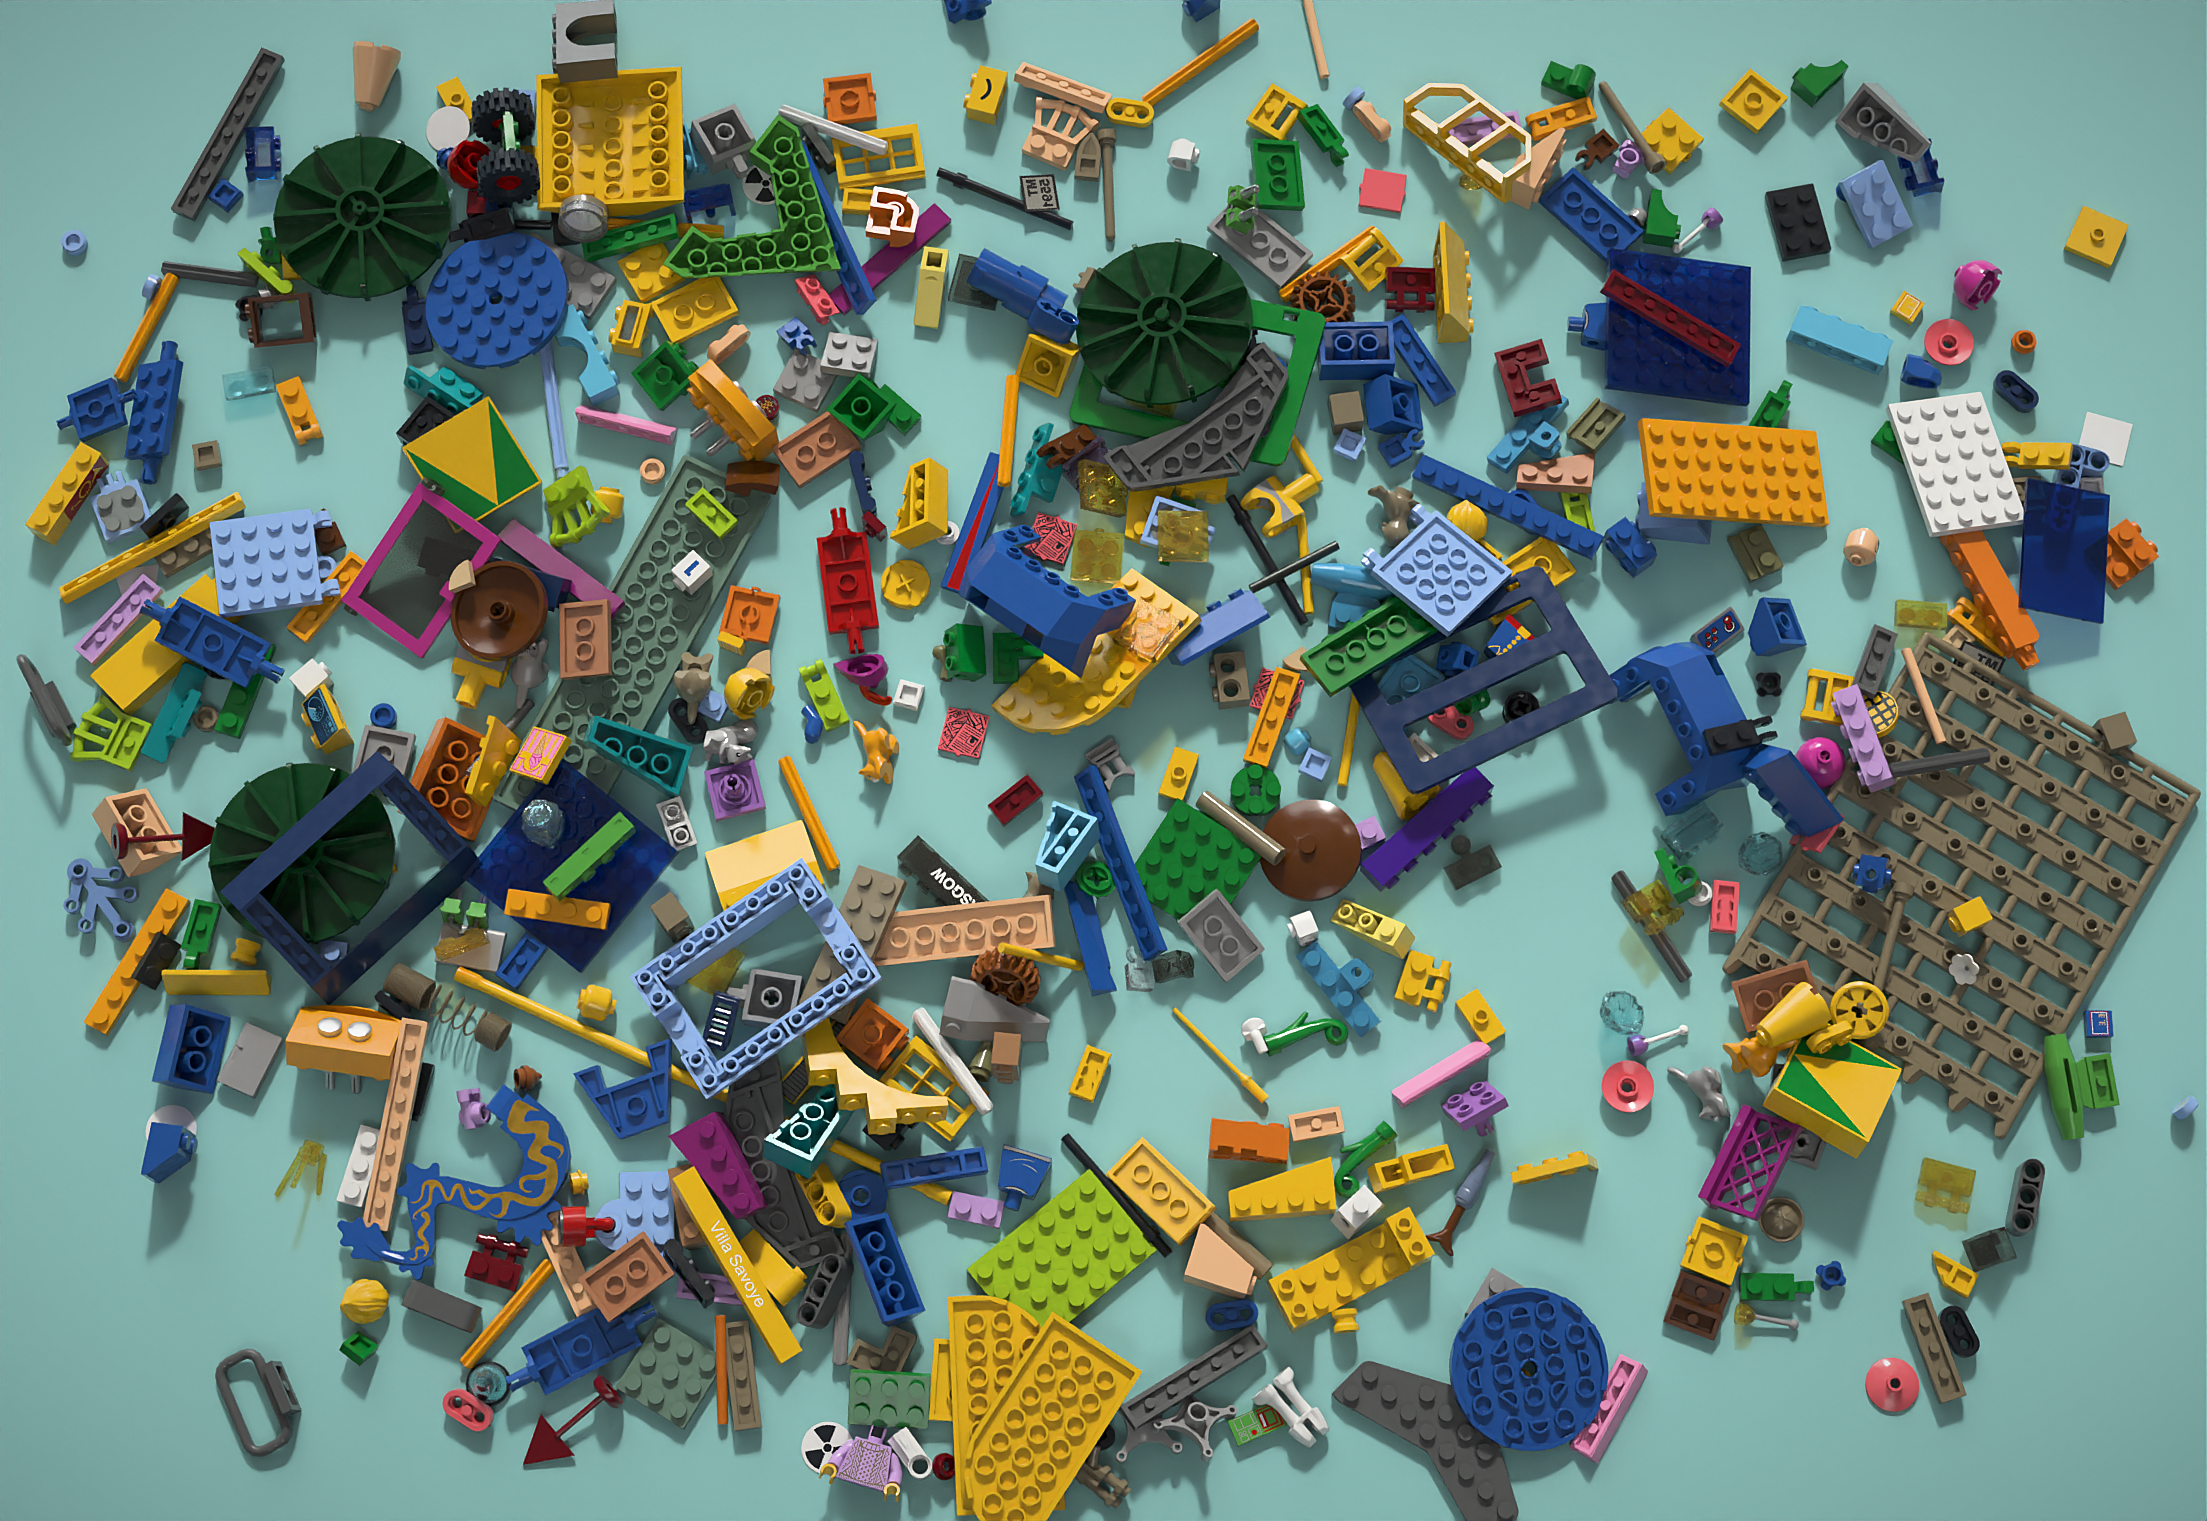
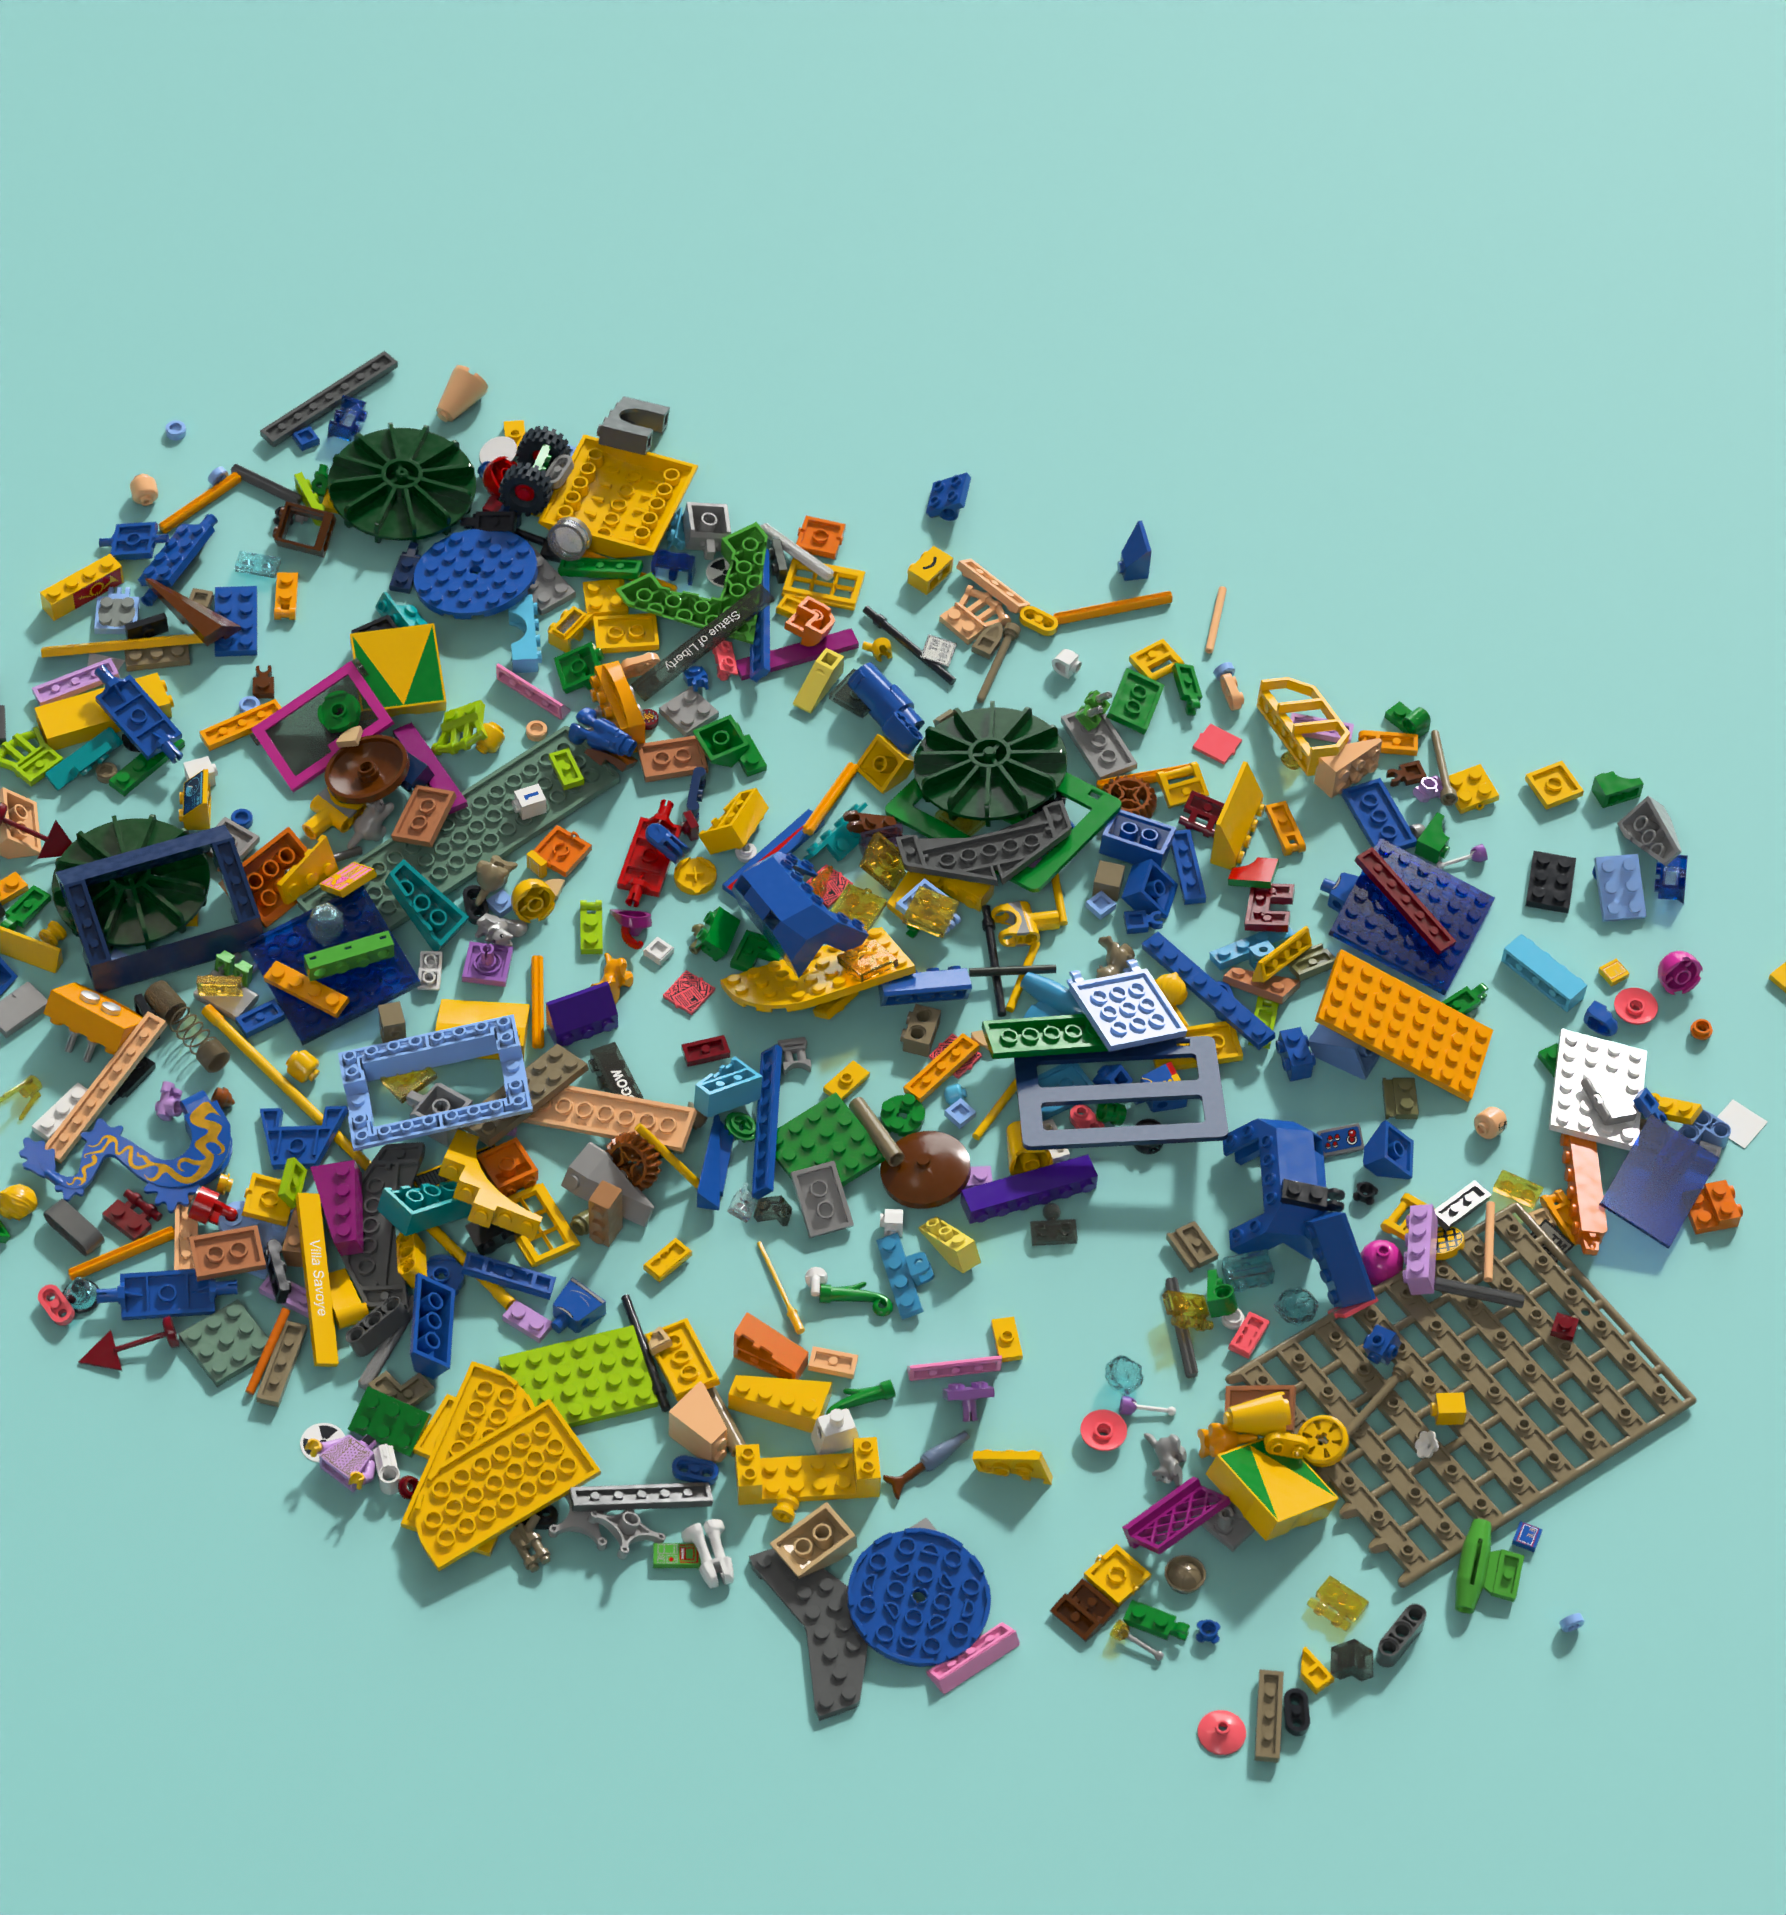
camera: 20 degrees right, 20 degrees down
(77, 338) = (144, 489): none -> light nougat head
(223, 485) = (201, 620): none -> reddish brown wedge
(258, 465) = (240, 607): none -> blue plate
(269, 562) = (210, 682): light blue plate -> none
(449, 551) = (341, 722): none -> green plate
(533, 139) = (560, 470): none -> light grey plate
(553, 411) = (482, 658): light blue piece -> none
(640, 1190) = (263, 1200): none -> yellow plate
(658, 1164) = (292, 1181): none -> lime plate
(715, 1036) = (388, 1108): dark blue slope -> none
(738, 460) = (603, 737): none -> blue piece
(787, 291) = (702, 642): none -> clear smoke tile
(814, 724) = (572, 943): blue arm -> none
(848, 355) = (728, 701): plate -> none
(854, 560) = (666, 842): none -> blue arm
(868, 817) = (581, 1014): none -> dark purple slope
(952, 1061) = (562, 1209): white axle -> none
(975, 215) = (879, 647): none -> yellow piece
(1046, 550) = (820, 881): none -> clear yellow plate
(1127, 1180) = (659, 1341): none -> tan tile
(1394, 1354) = (815, 1542): none -> tan slope
(1410, 1168) = (894, 1422): yellow slope -> none
(1414, 979) = (967, 1292): yellow plate -> none
(1495, 341) = (1257, 874): none -> tile
(1499, 269) = (1285, 828): none -> light orange plate
(1570, 437) = (1282, 955): none -> yellow slope
(1622, 825) = (1192, 1246): none -> dark tan plate
(1977, 476) = (1608, 1099): none -> piece
(2017, 390) = (1677, 1062): dark blue plate -> none
(2017, 466) = (1648, 1105): none -> blue plate
(2040, 766) = (1564, 1327): none -> dark red plate
(2116, 732) = (1642, 1328): dark tan piece -> none

